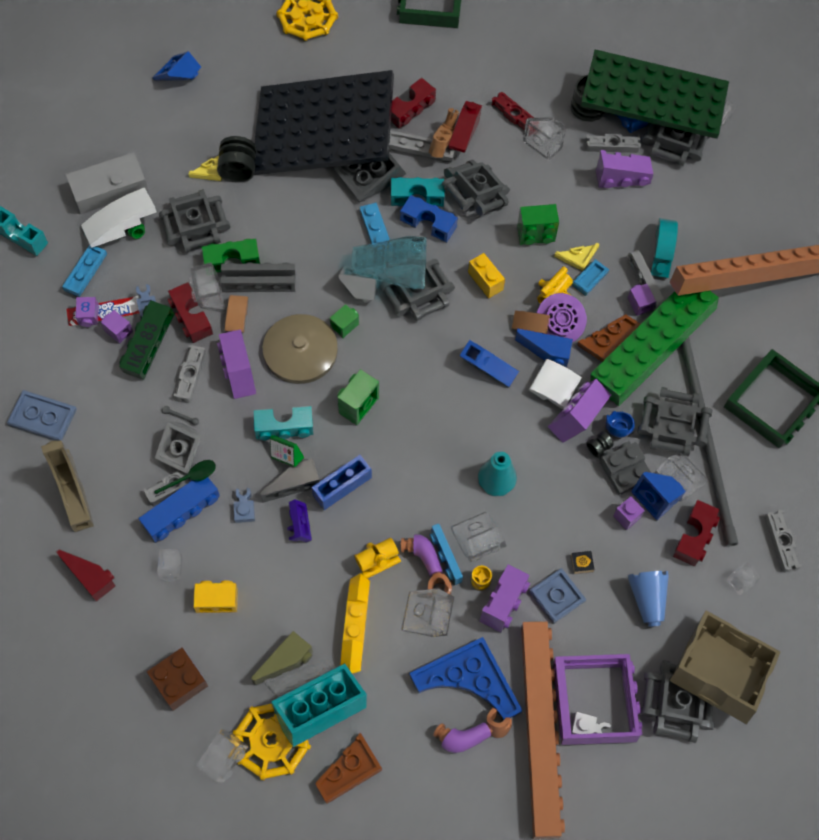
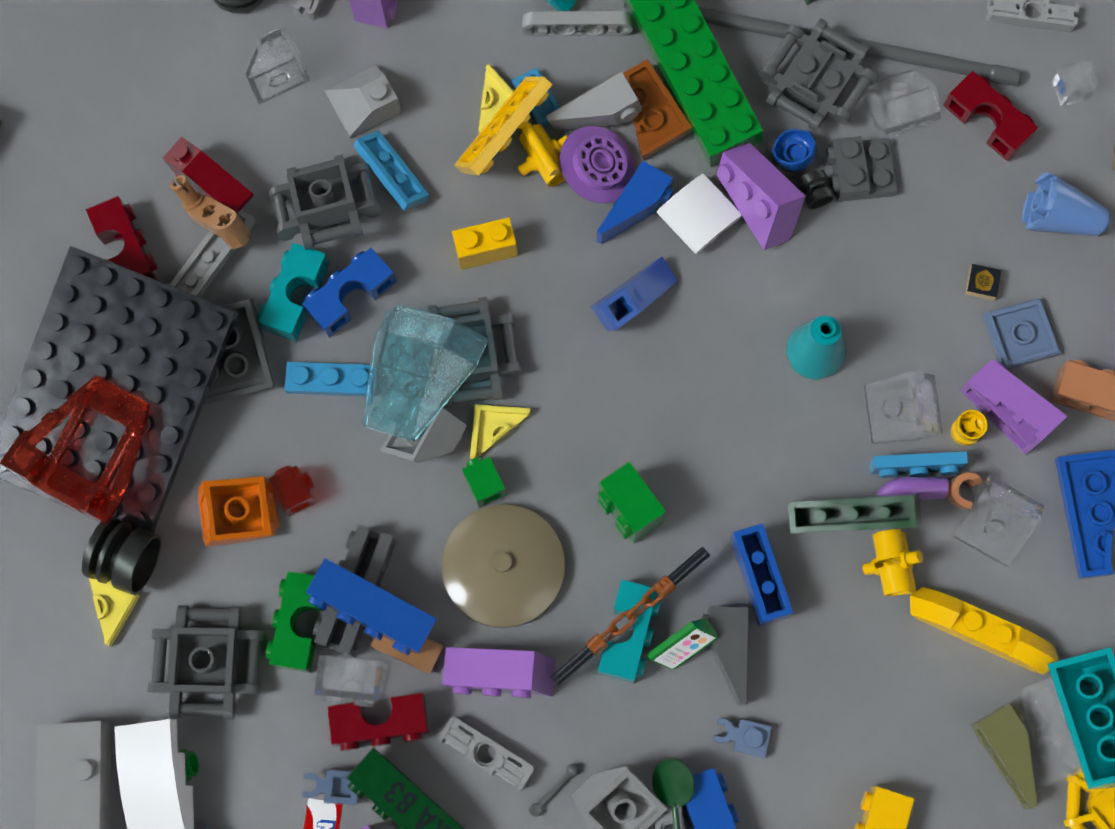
camera: 65 degrees left, 10 degrees up
(248, 281) = (369, 606): none -> blue brick
(266, 111) = (64, 485): none -> clear red windscreen
(282, 206) = (237, 510): none -> orange slope
(300, 520) = (794, 657): dark purple plate -> none
(303, 229) = (293, 489): none -> clear red brick
(313, 427) = (597, 644): none -> piece
(380, 316) = (493, 424): none -> light yellow tile
(397, 520) = (855, 513): none -> dark green brick
(507, 105) = (186, 102): dark red piece -> none
(509, 216) = (391, 170): none -> dark azure plate
(531, 321) = (589, 209): medium nougat slope -> none
(538, 224) = (430, 135): green brick -> none
(547, 189) = (364, 101): none -> light grey slope
(552, 257) = (498, 131): none -> yellow plate
(600, 309) = (601, 106): none -> light grey slope
(628, 513) = (935, 191): medium lavender brick -> none
(641, 299) = (604, 42): medium lavender brick -> none
(657, 493) = (927, 139): blue slope -> none

